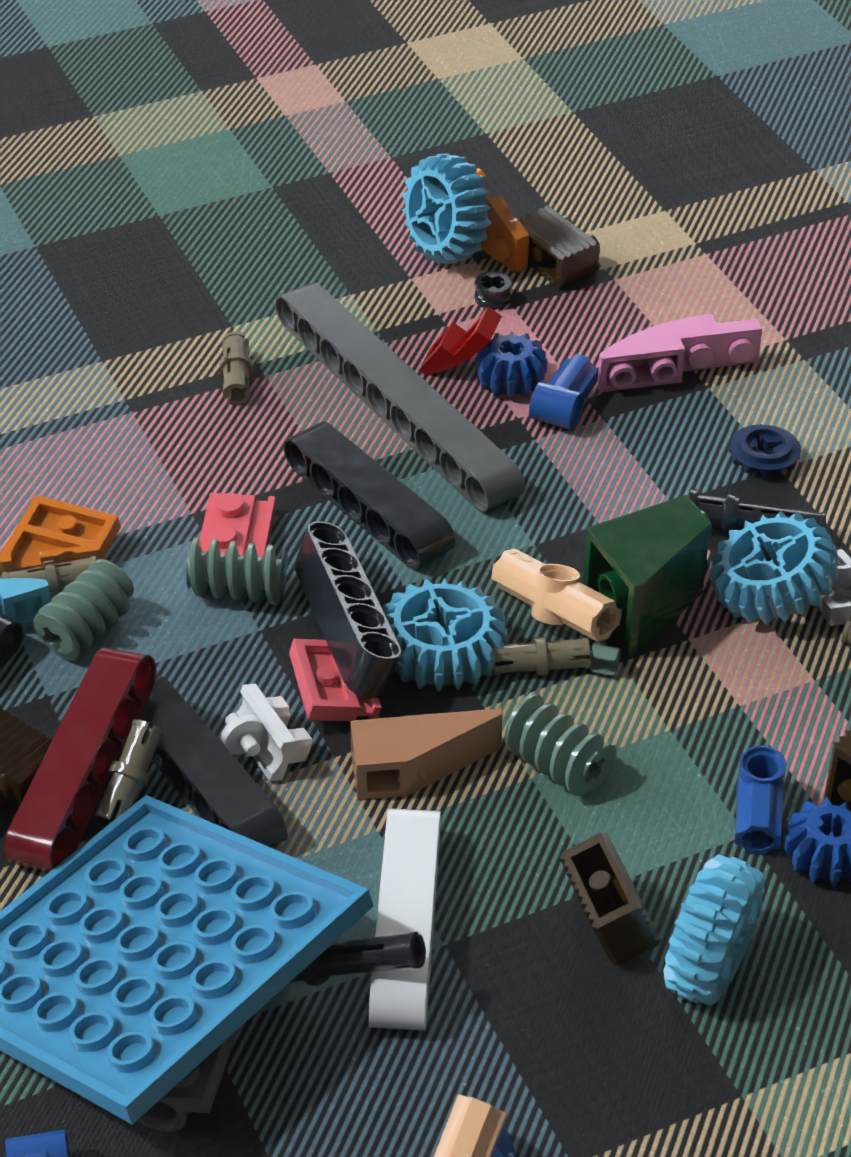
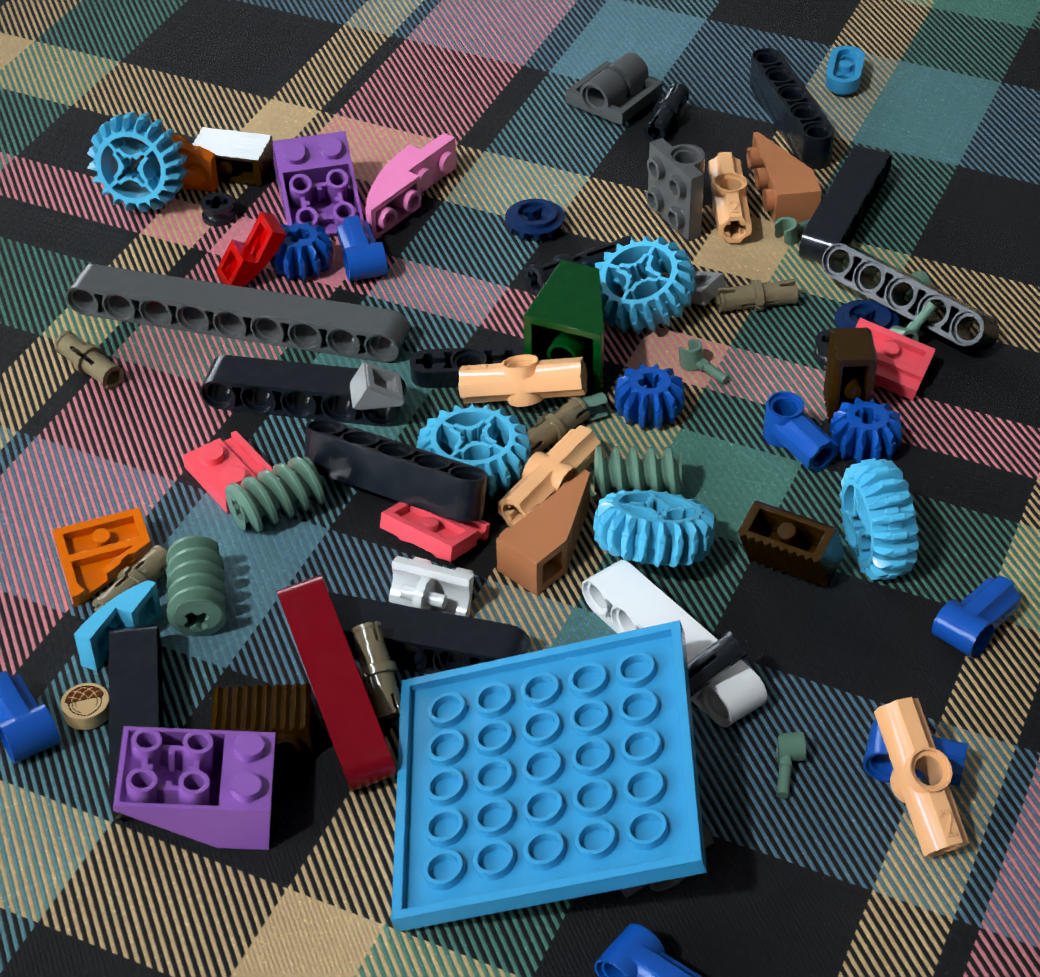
camera: 40 degrees left, 0 degrees up
(391, 1084) = (790, 749): none -> sand green hand
(410, 524) = (375, 388): none -> light grey slope
(482, 690) = (548, 472): none -> light nougat piece
(500, 801) = (654, 527): none -> medium azure gear
(505, 533) = (430, 366): none -> black beam
(595, 306) = (316, 180): none -> medium lavender slope
(660, 679) = (649, 396): none -> blue gear
(701, 1092) = (973, 621): none -> blue piece
(758, 673) = (694, 360): none -> sand green hand

